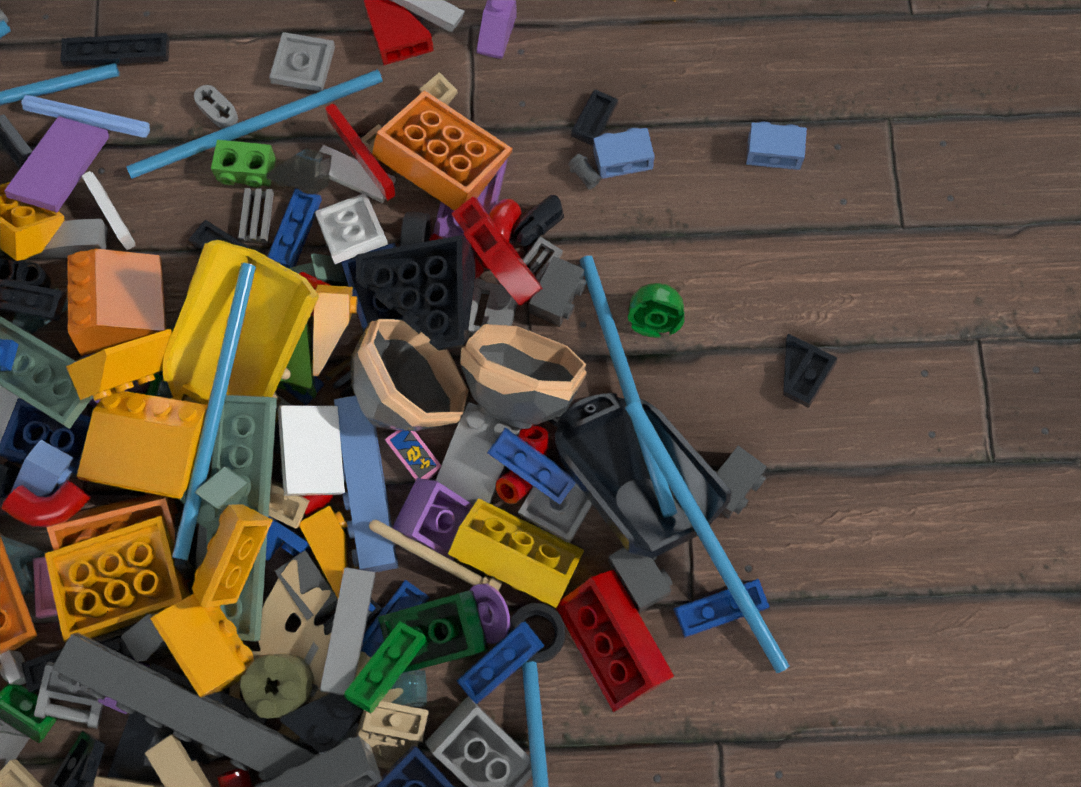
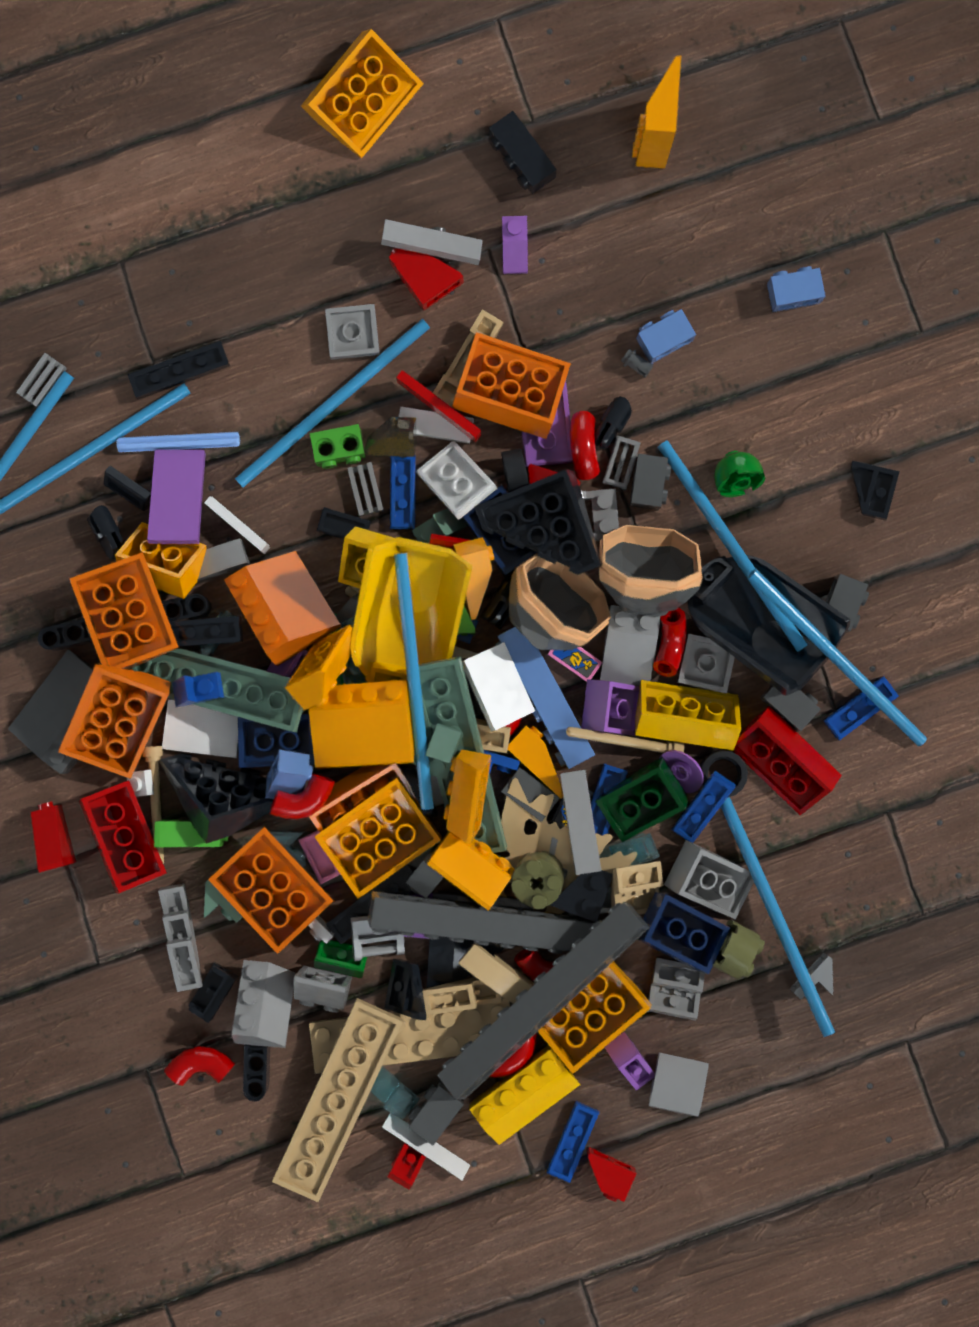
camera: 20 degrees left, 15 degrees up
(220, 103) = (287, 403): light grey beam -> none
(385, 667) = (620, 841): green plate -> none
(496, 251) = (591, 467): red slope -> none
(532, 465) = (680, 643): blue tile -> none
(594, 117) = (628, 307): black tile -> none

